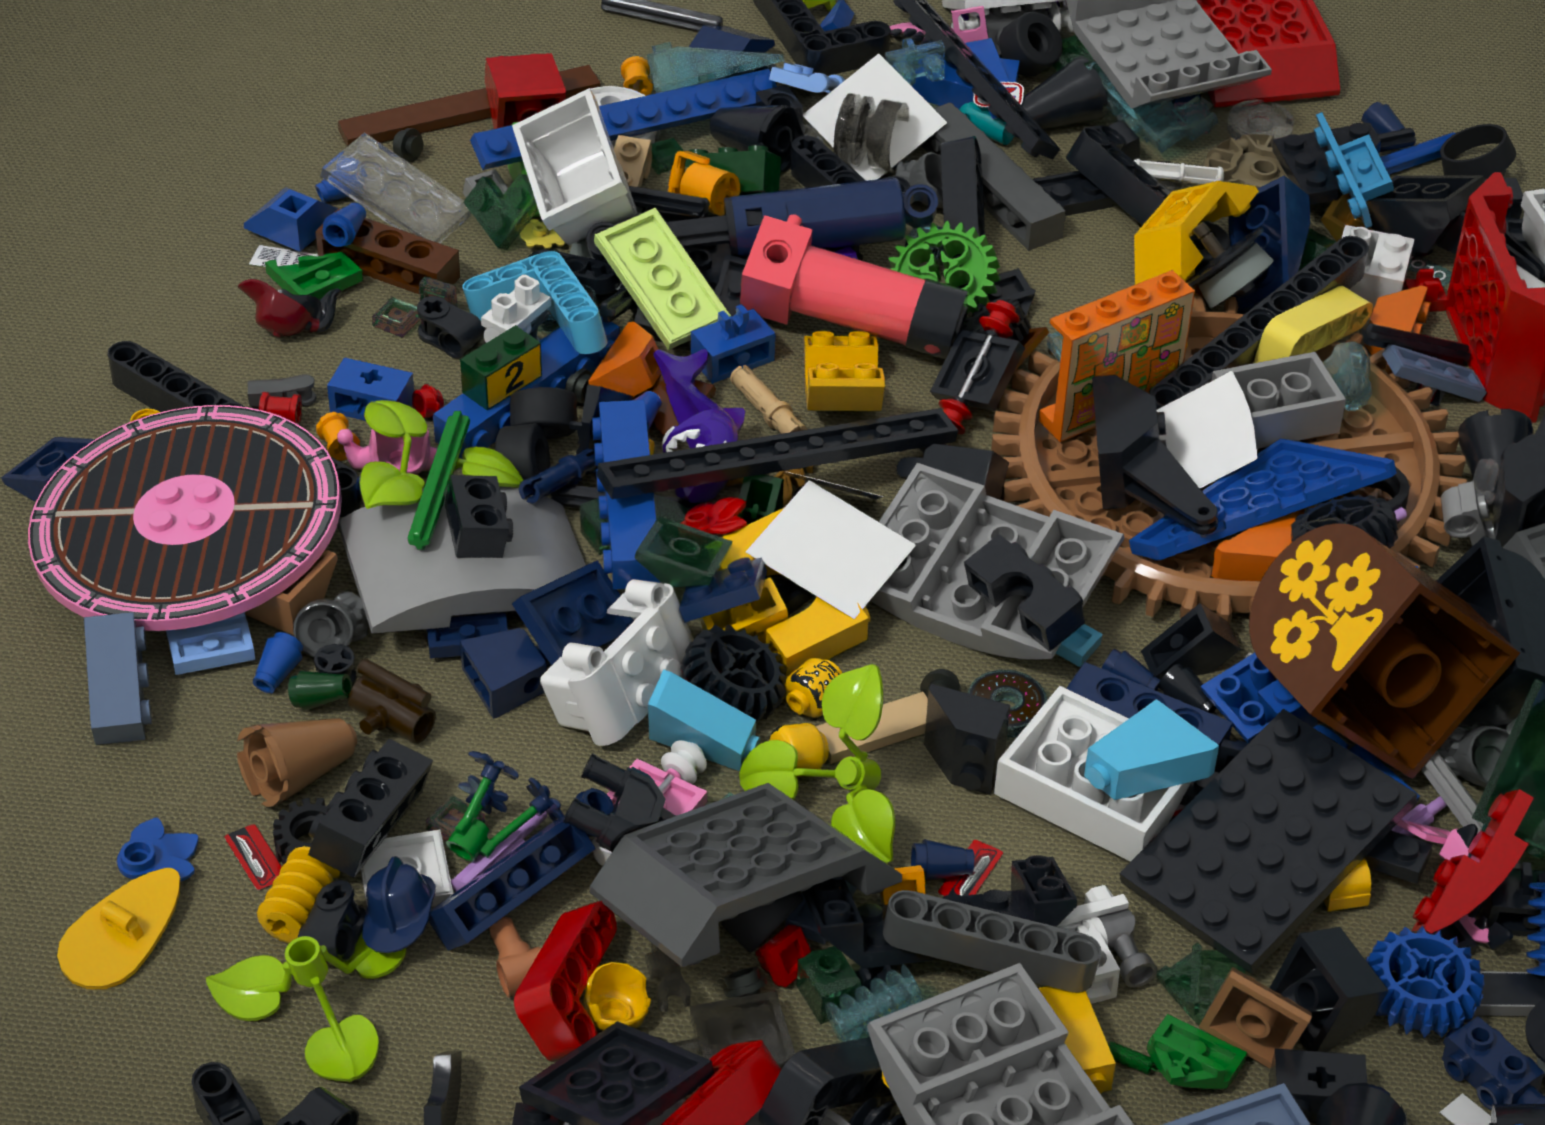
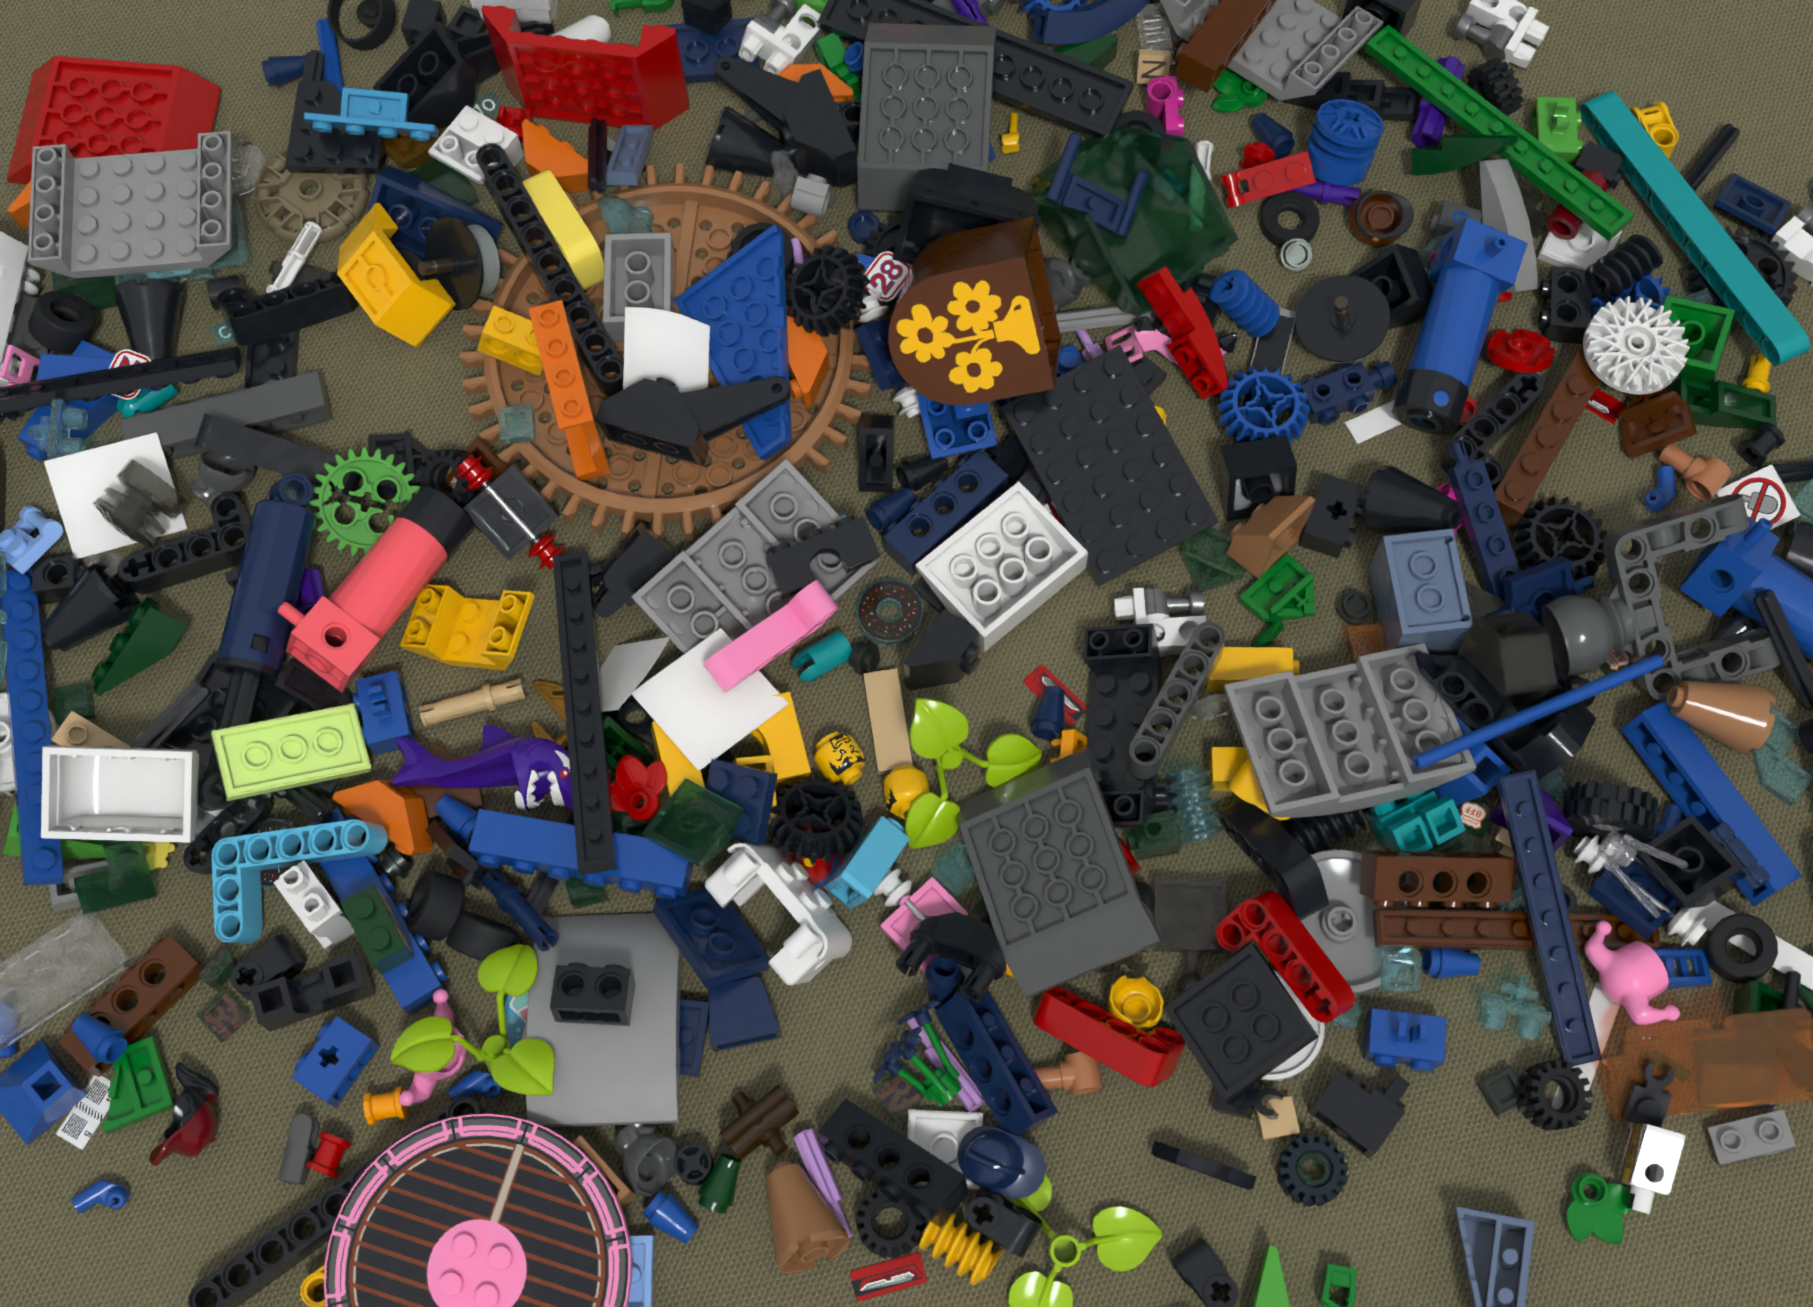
camera: 70 degrees left, 25 degrees up
(211, 280) = (102, 1192): none -> blue arm
(335, 779) = (820, 1173): none -> lavender axle
(418, 345) = (291, 1001): none -> black arch
(427, 401) = (364, 1010): red plate -> none
(438, 480) = (527, 1019): green axle -> none
(702, 180) = (159, 677): light orange piece -> none
(916, 577) = (771, 637): none -> bright pink beam
(926, 651) = (826, 653): none -> teal piece
(1150, 754) = (1020, 521): medium azure slope -> none

